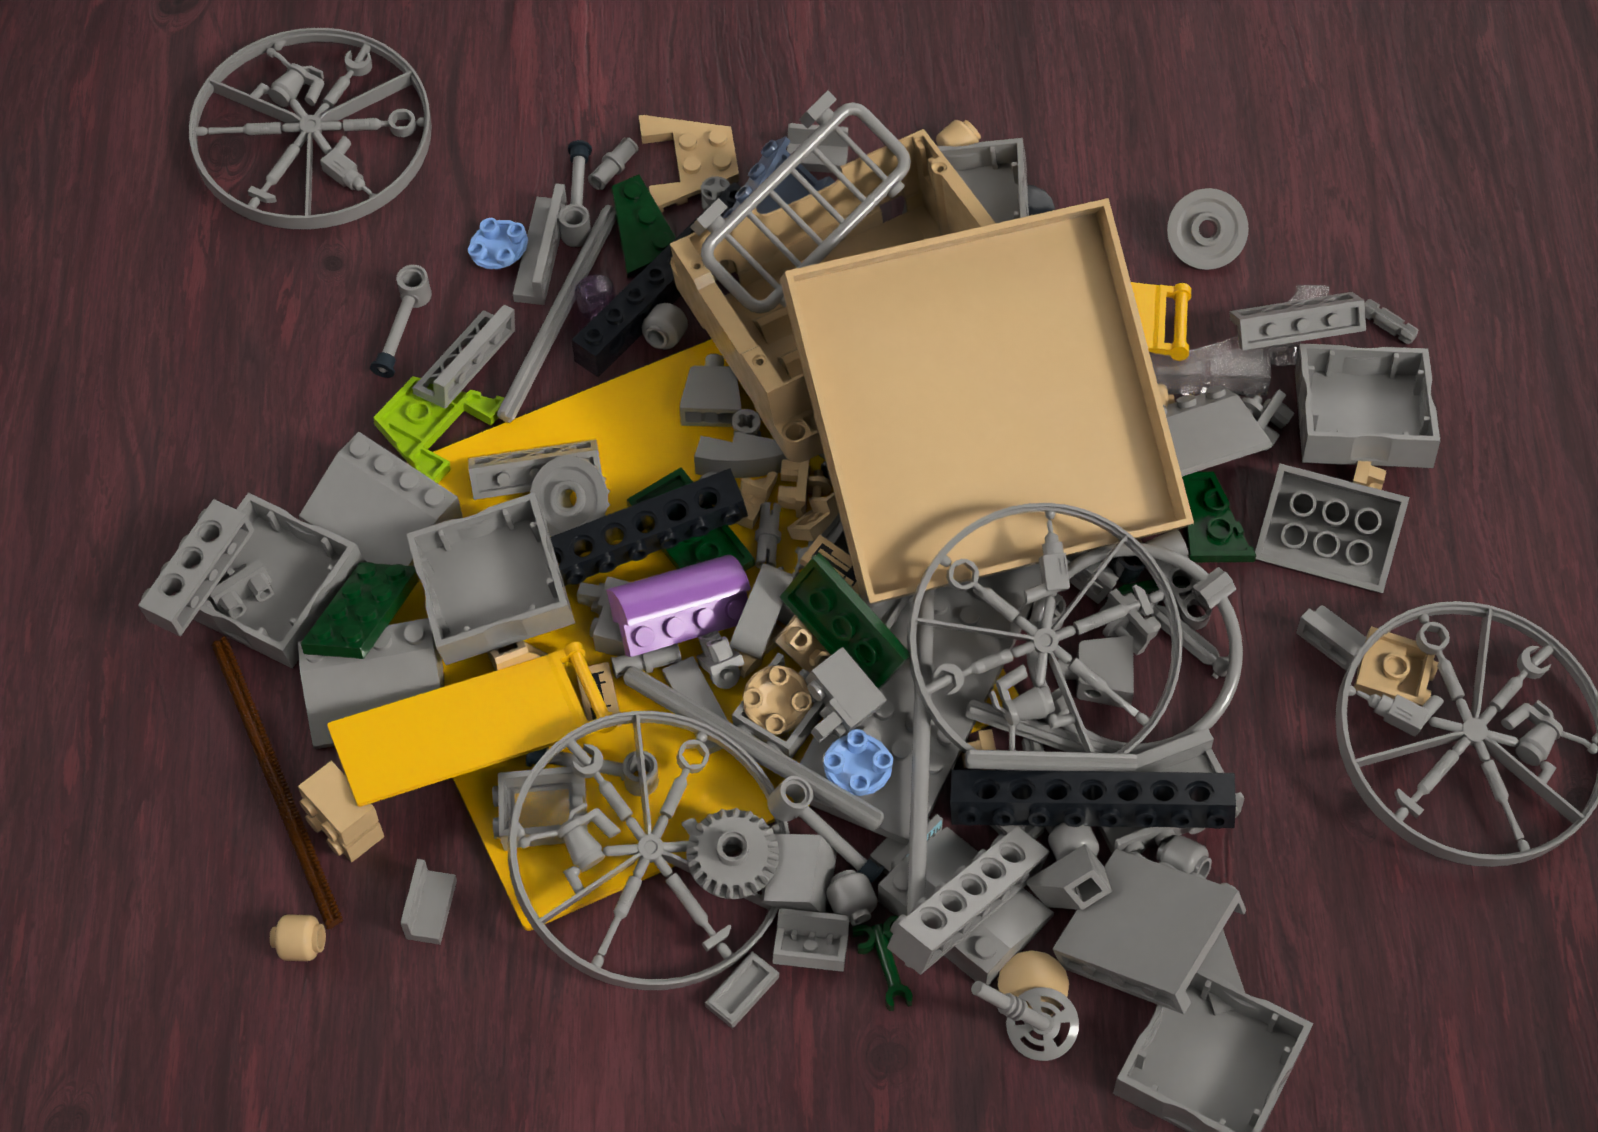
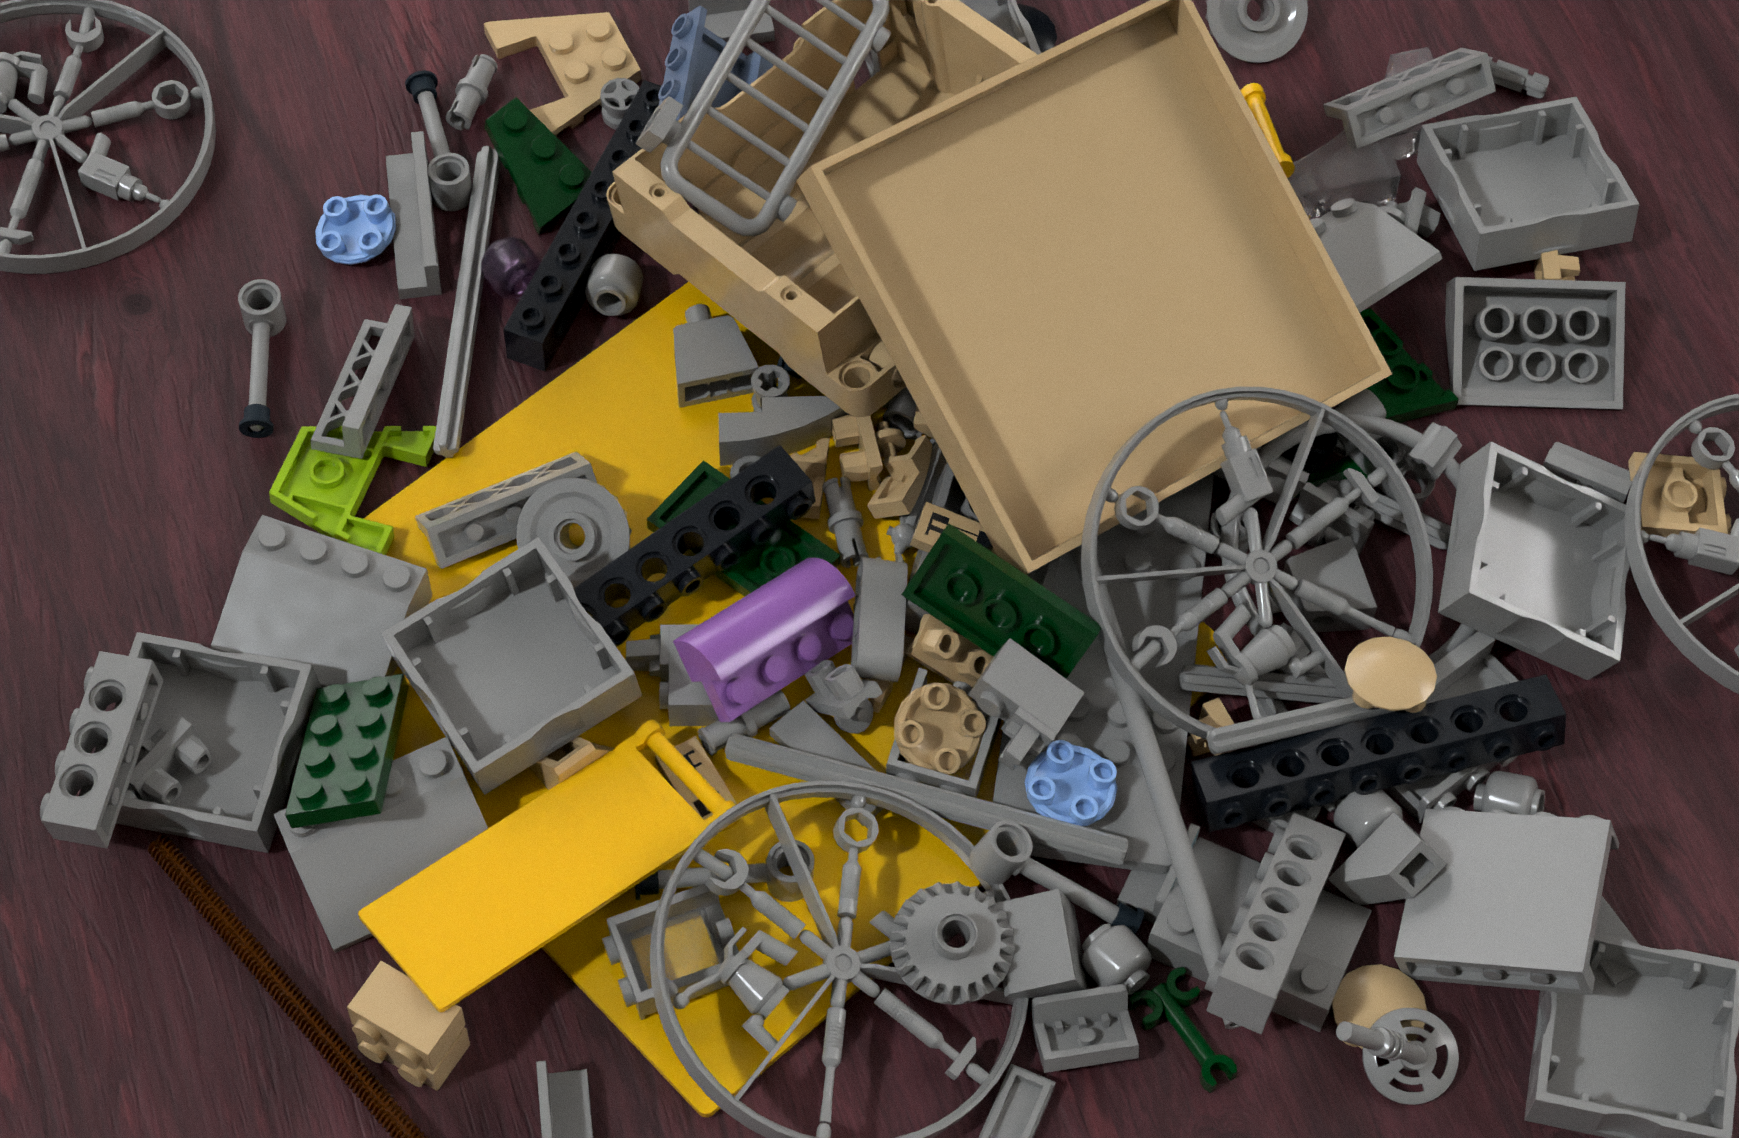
camera: 20 degrees left, 0 degrees up
(1117, 744) = (1390, 675): none -> tan dish
(1264, 690) = (1537, 562): none -> light grey tile

